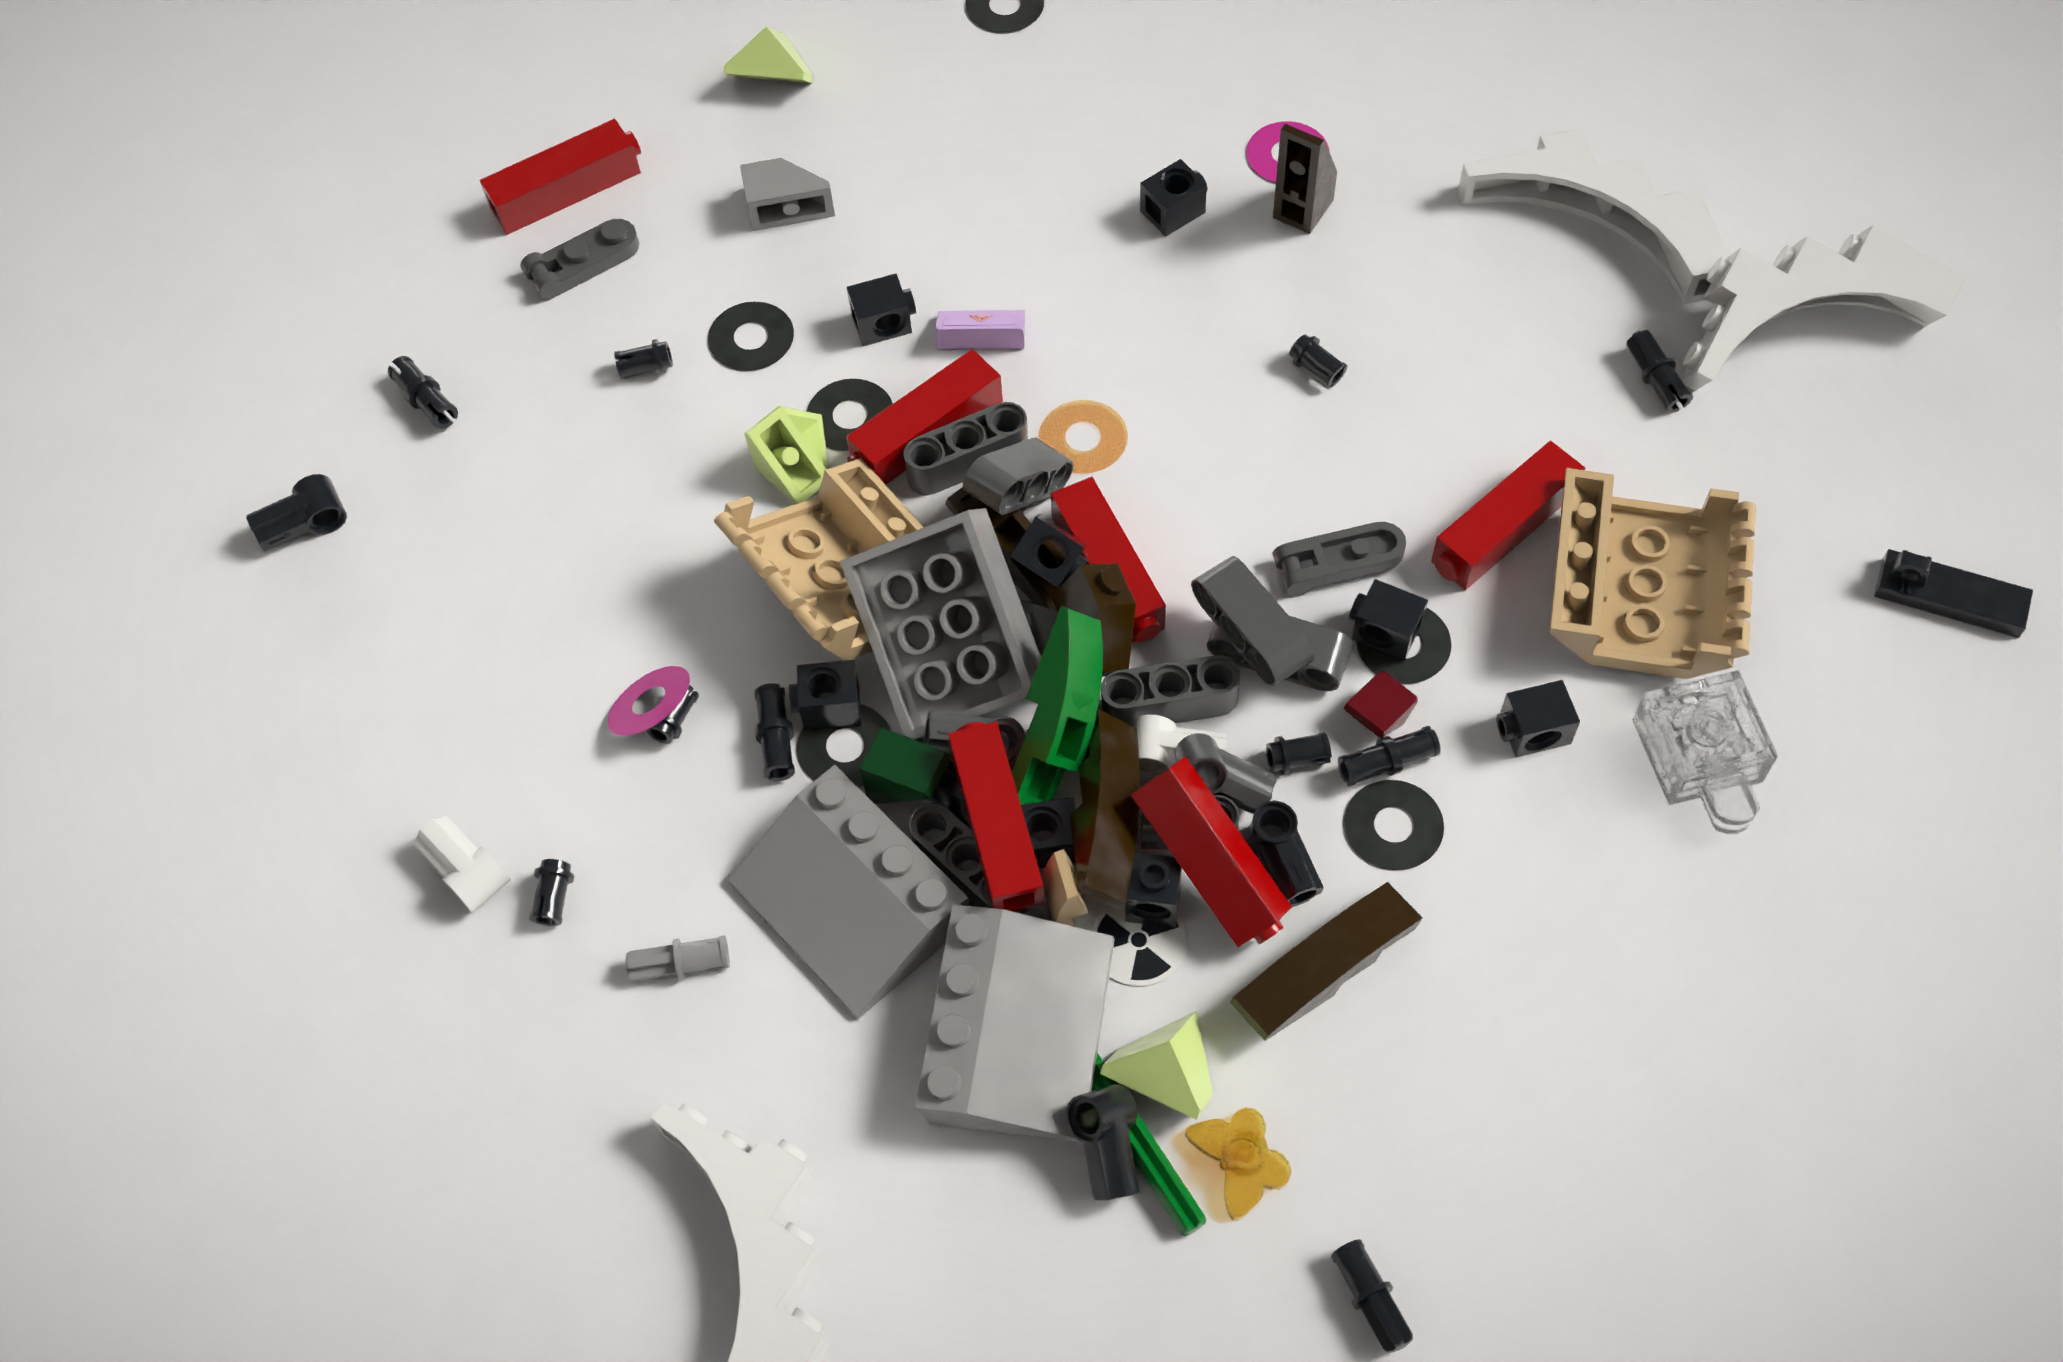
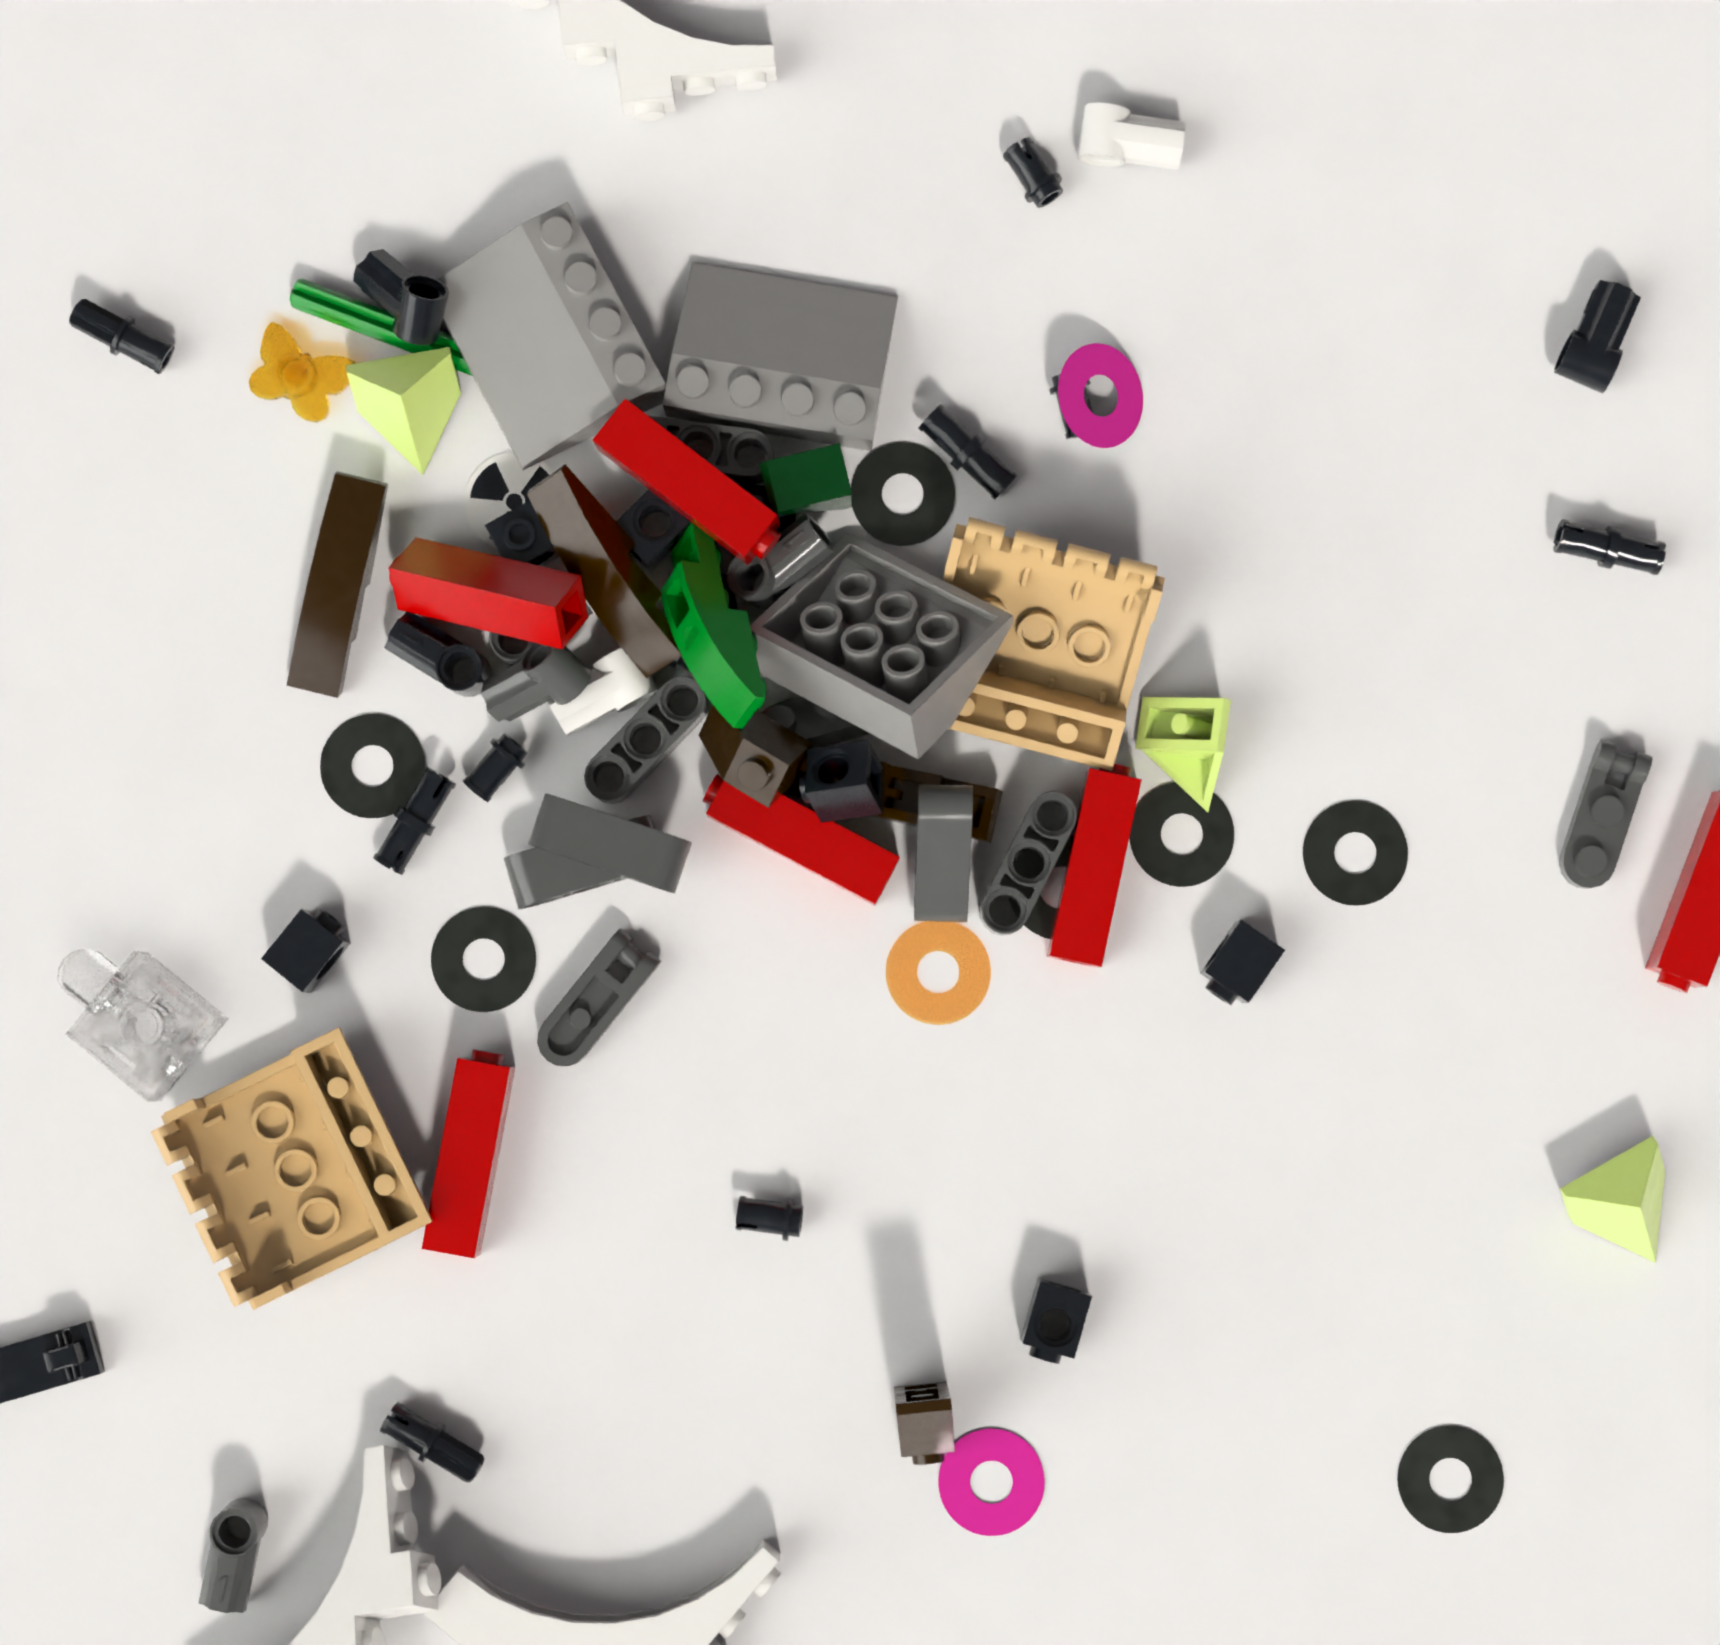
camera: 140 degrees right, 25 degrees up
(644, 359) = (1426, 741): black pin -> none
(677, 958) = (876, 198): light grey axle -> none
(784, 194) = (1464, 1030): light grey slope -> none
(835, 711) = (927, 529): black brick -> none
(980, 329) = (1132, 1022): lavender slope -> none
(1062, 889) = (587, 467): tan slope -> none
(1382, 704) = (452, 863): dark red slope -> none
(1387, 619) = (504, 956): black brick -> none
(1852, 386) = (232, 1558): none -> dark grey piece

